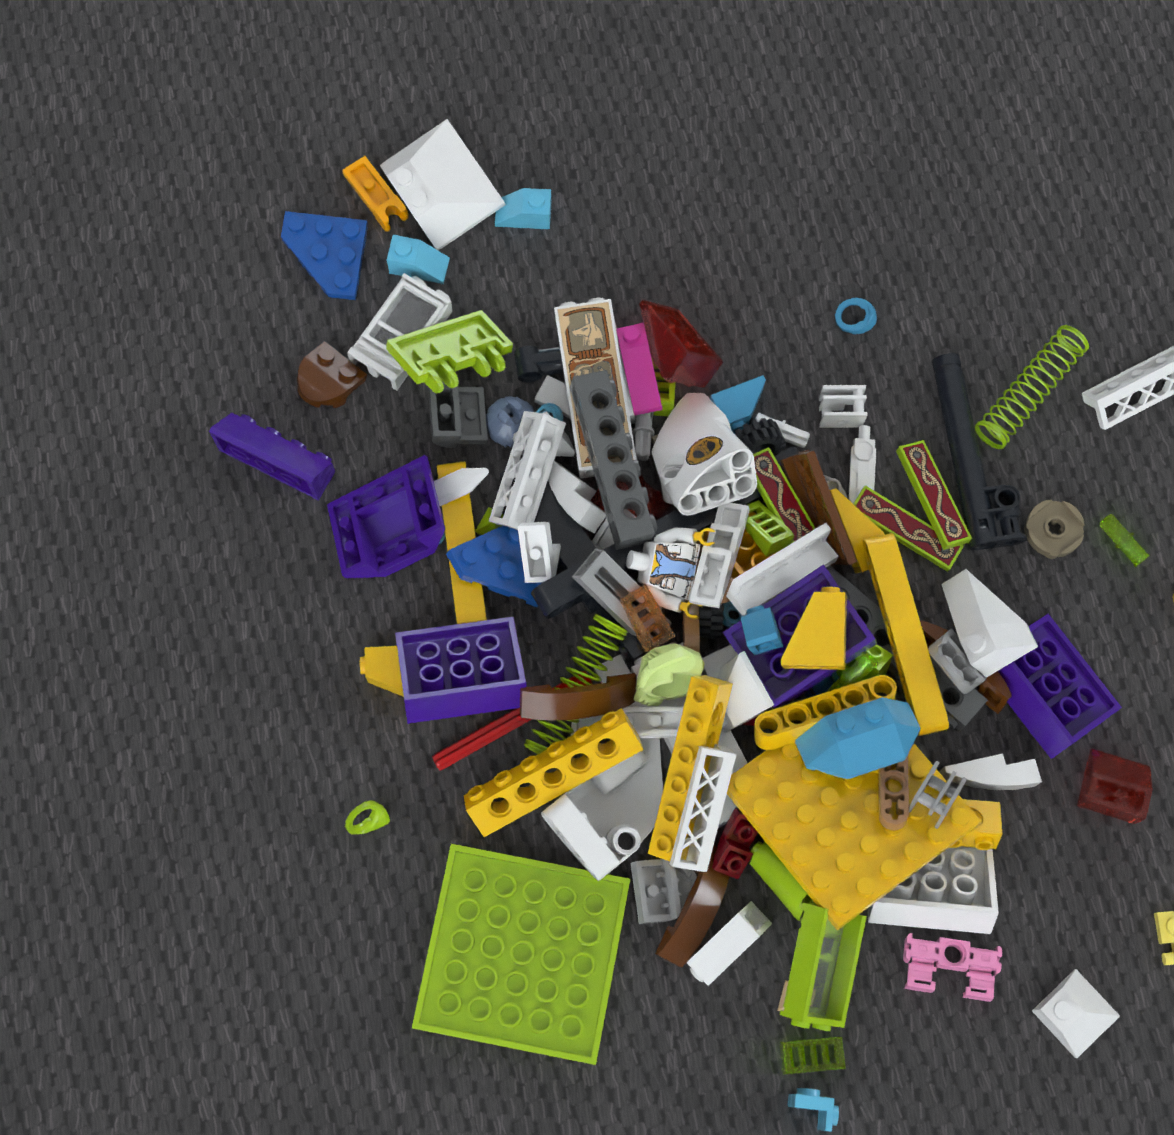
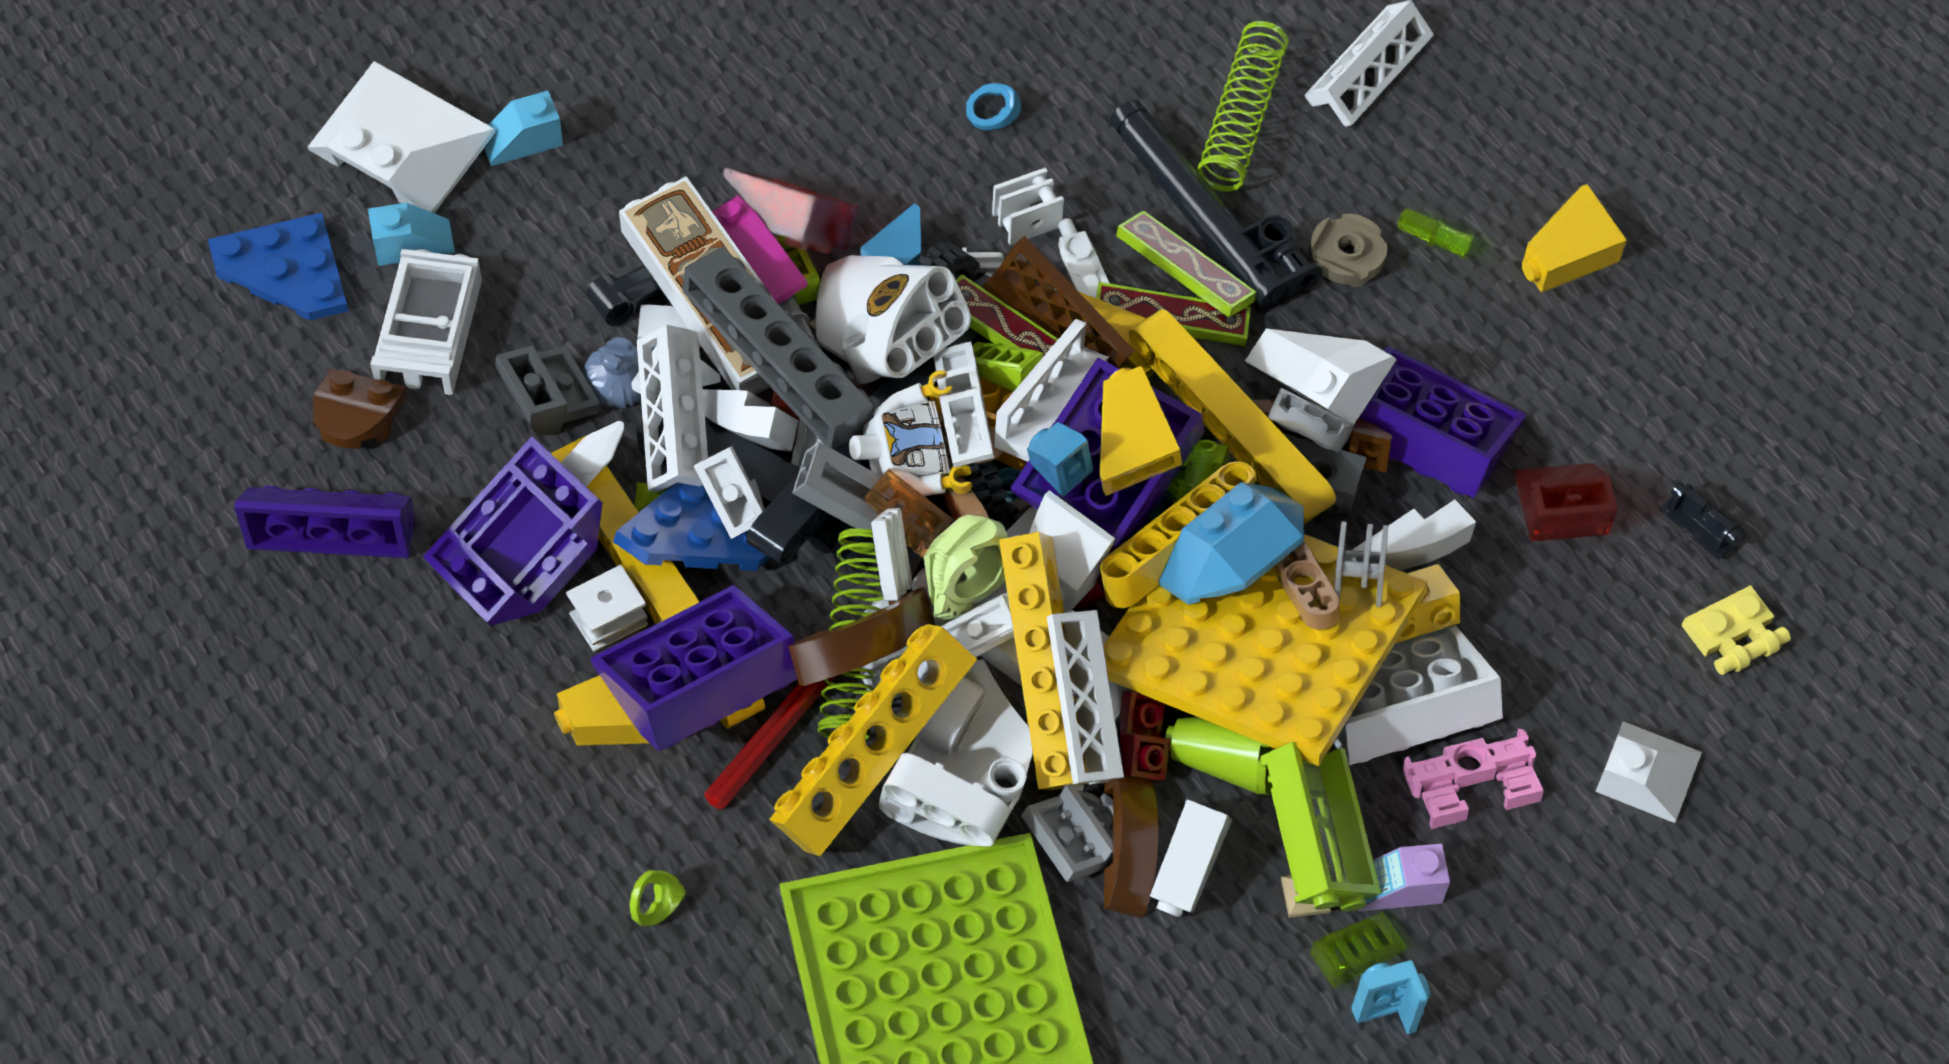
camera: 25 degrees left, 15 degrees down
(374, 192) = (318, 178): light orange plate -> none
(426, 595) = (607, 608): none -> white piece
(441, 349) = (499, 312): lime hinge -> none
(621, 646) = (891, 554): none -> white tile
(870, 1023) = (1410, 877): none -> lavender slope

